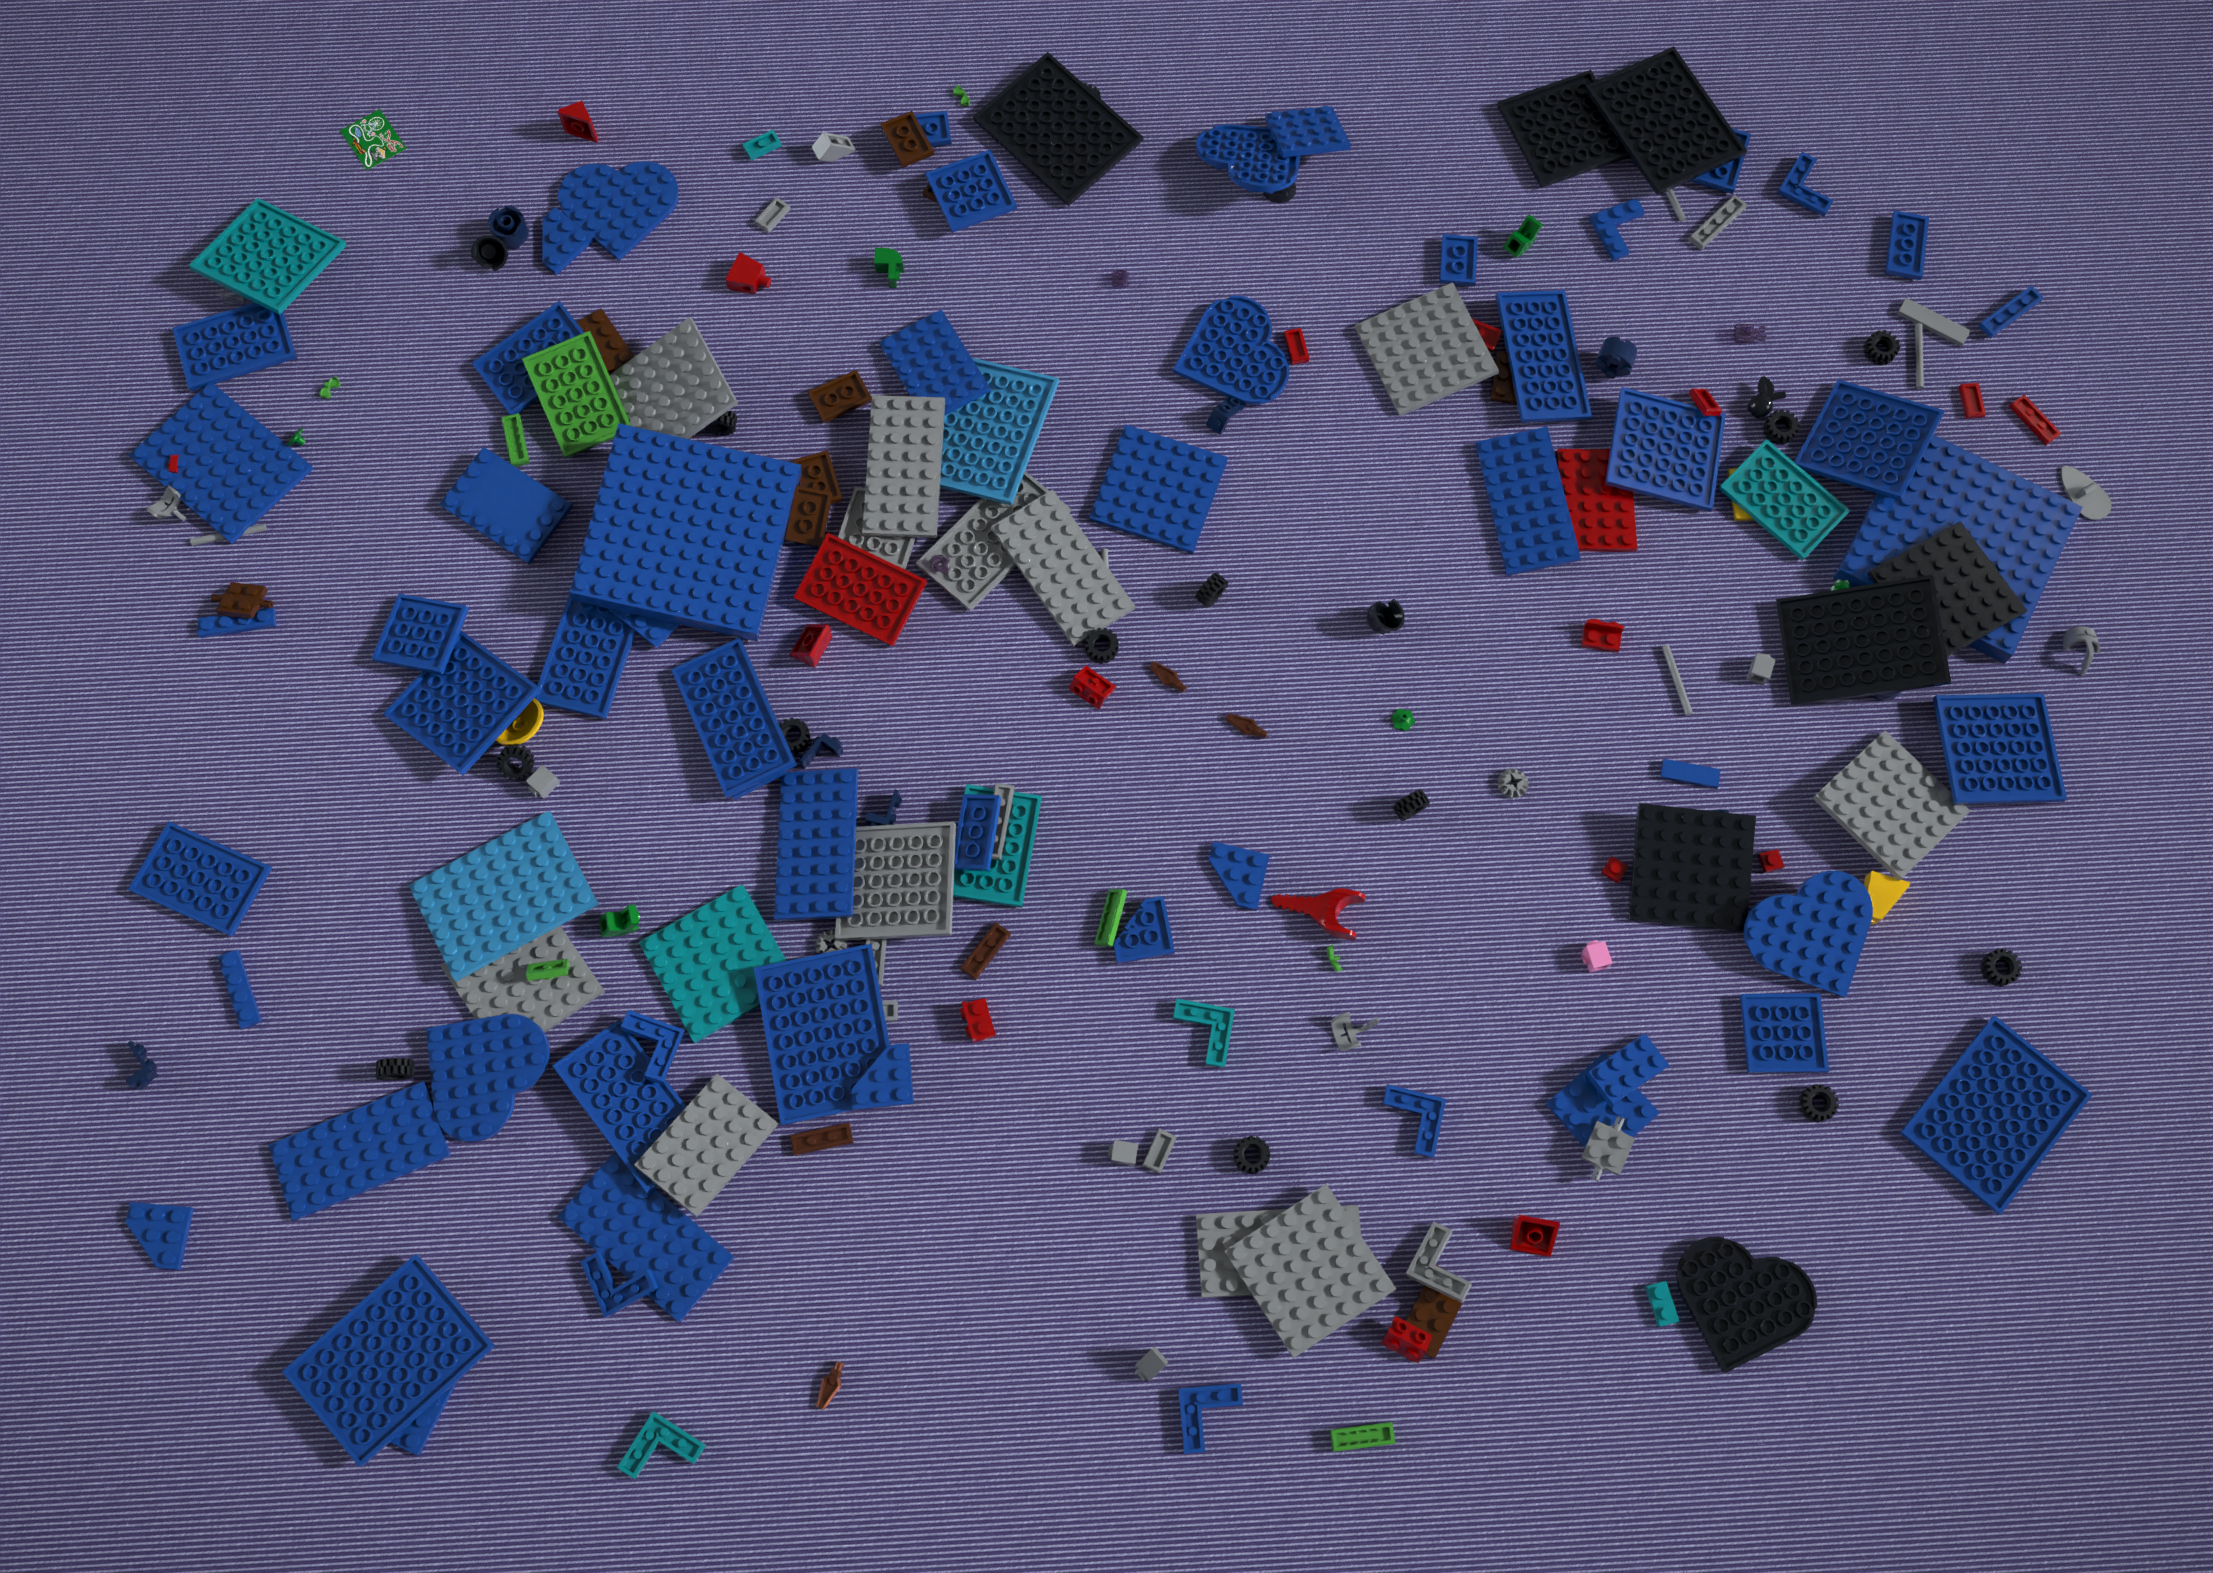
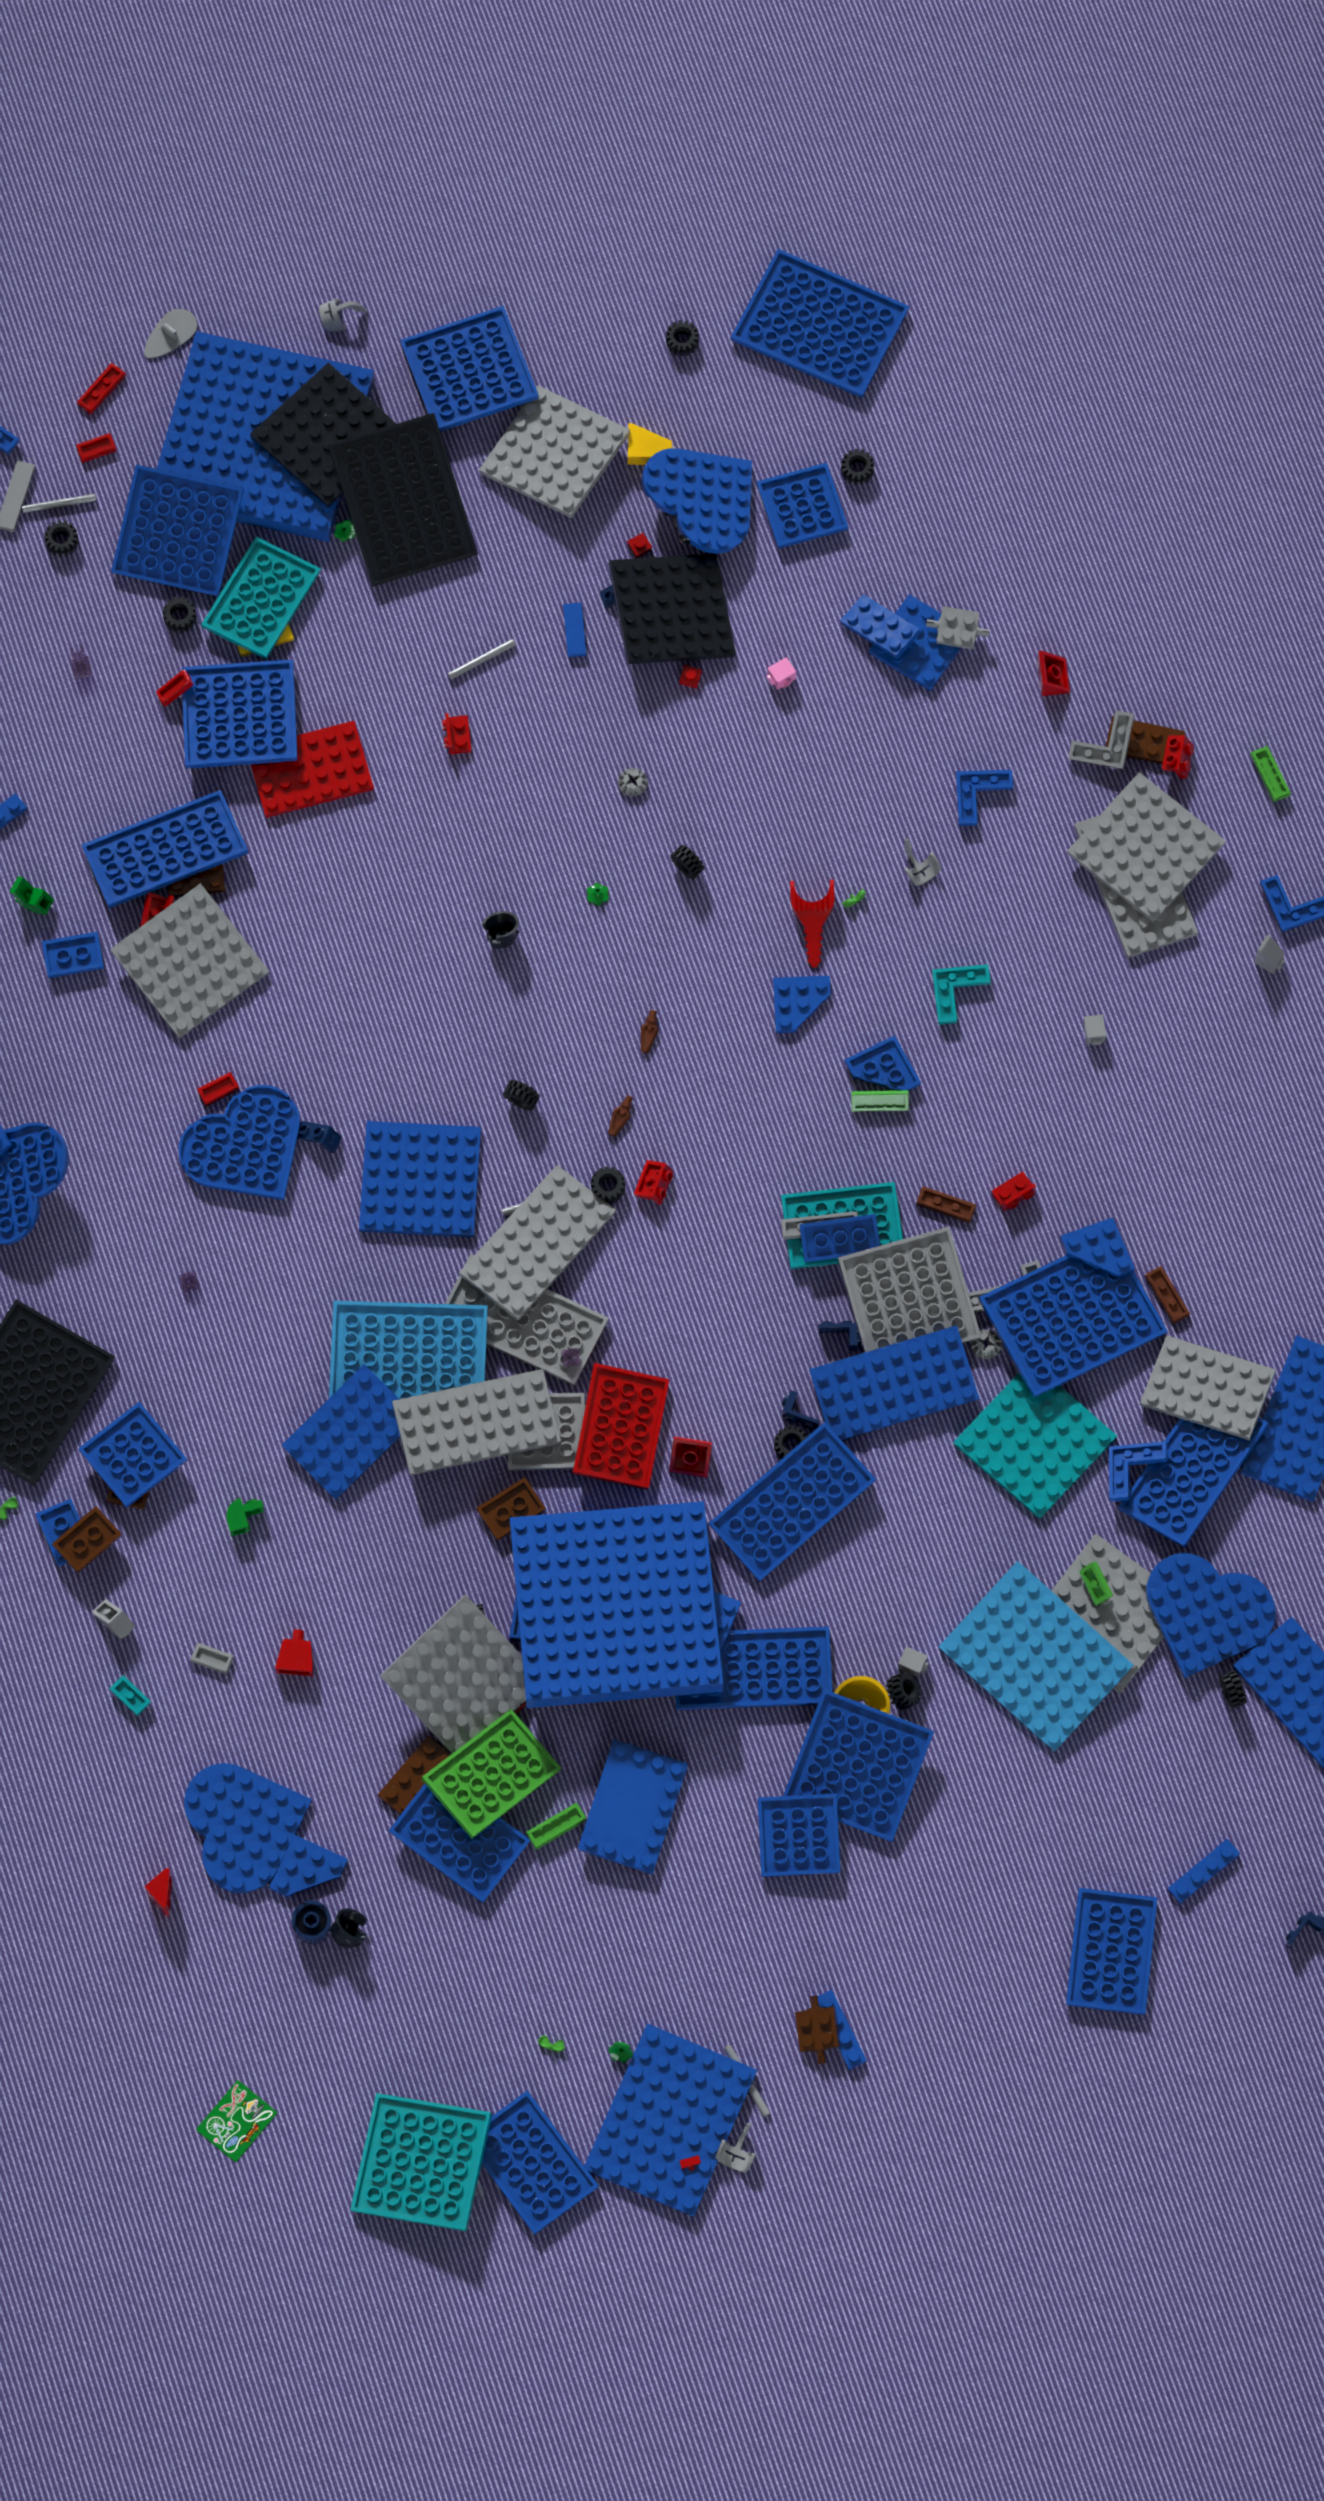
camera: 105 degrees left, 0 degrees up
(619, 923) = (1027, 1538): green brick -> none
(808, 516) = (556, 1497): reddish brown plate -> none
(840, 396) = (409, 1517): reddish brown plate -> none
(1159, 1151) = (1081, 1002): light grey tile -> none
(1242, 1163) = (1055, 912): black tyre -> none
(1527, 501) = (332, 830): blue plate -> none
(1616, 357) = (150, 779): dark blue brick -> none
(1662, 1304) = (1076, 561): teal plate -> none
(1743, 1302) = (1052, 496): black plate -> none
(1761, 668) = (449, 586): light grey brick -> none
(1762, 403) = (158, 638): black piece -> none

